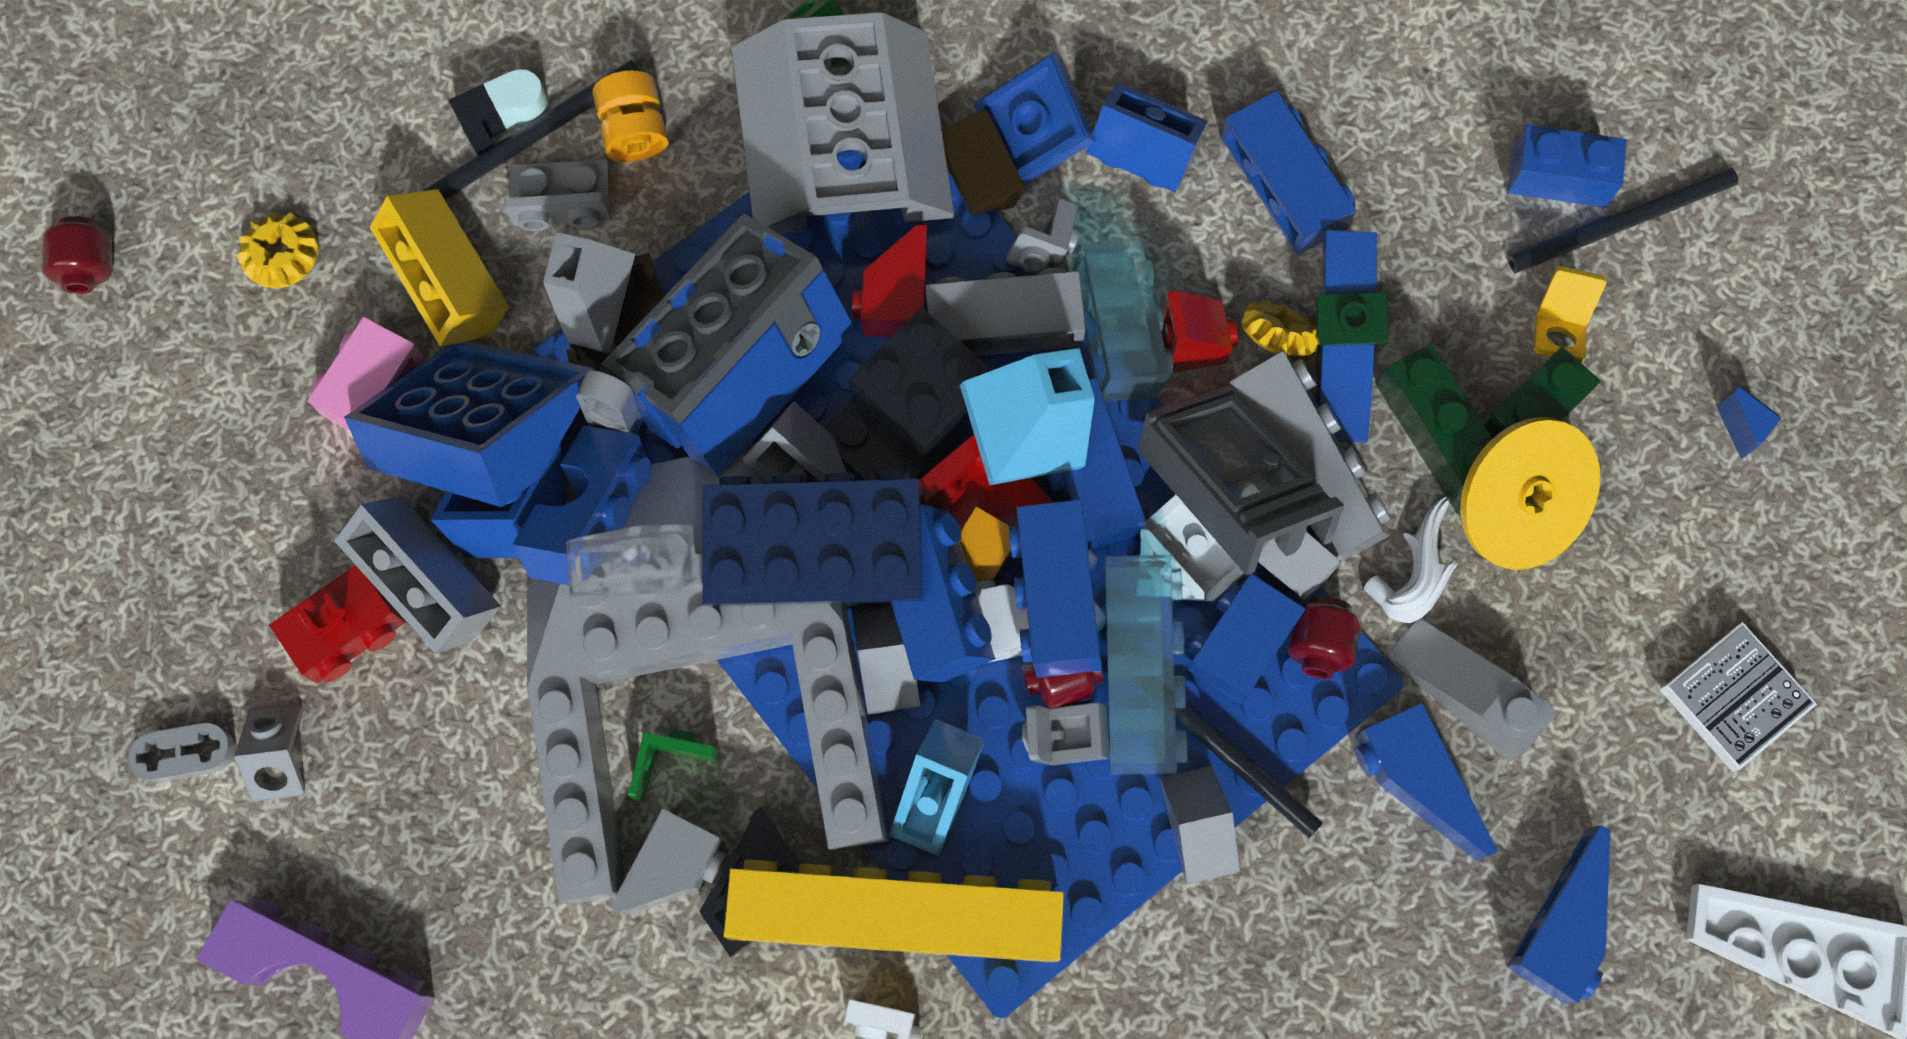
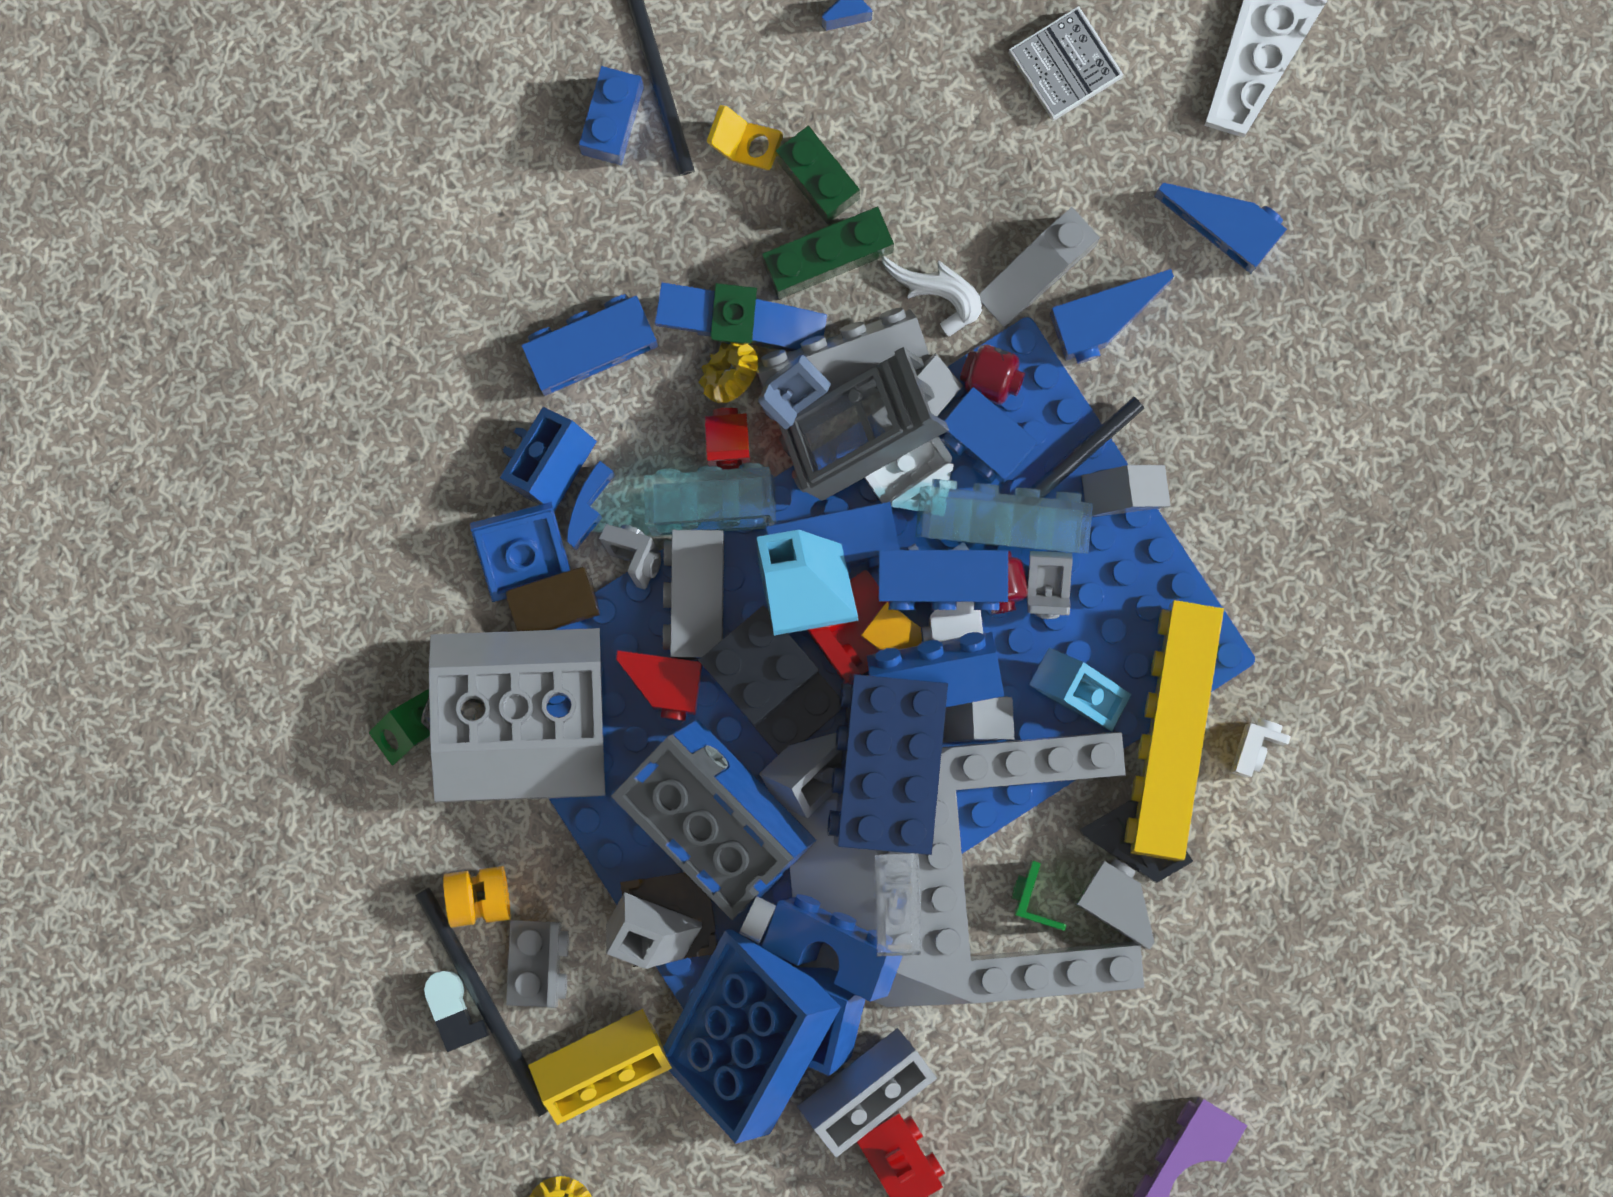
camera: 85 degrees left, 10 degrees up
(366, 364) = (688, 1132): bright pink brick -> none
(1087, 184) = (583, 516): none -> blue slope
(1266, 387) = (792, 391): none -> sand blue bracket
(1494, 495) = (893, 196): yellow piece -> none

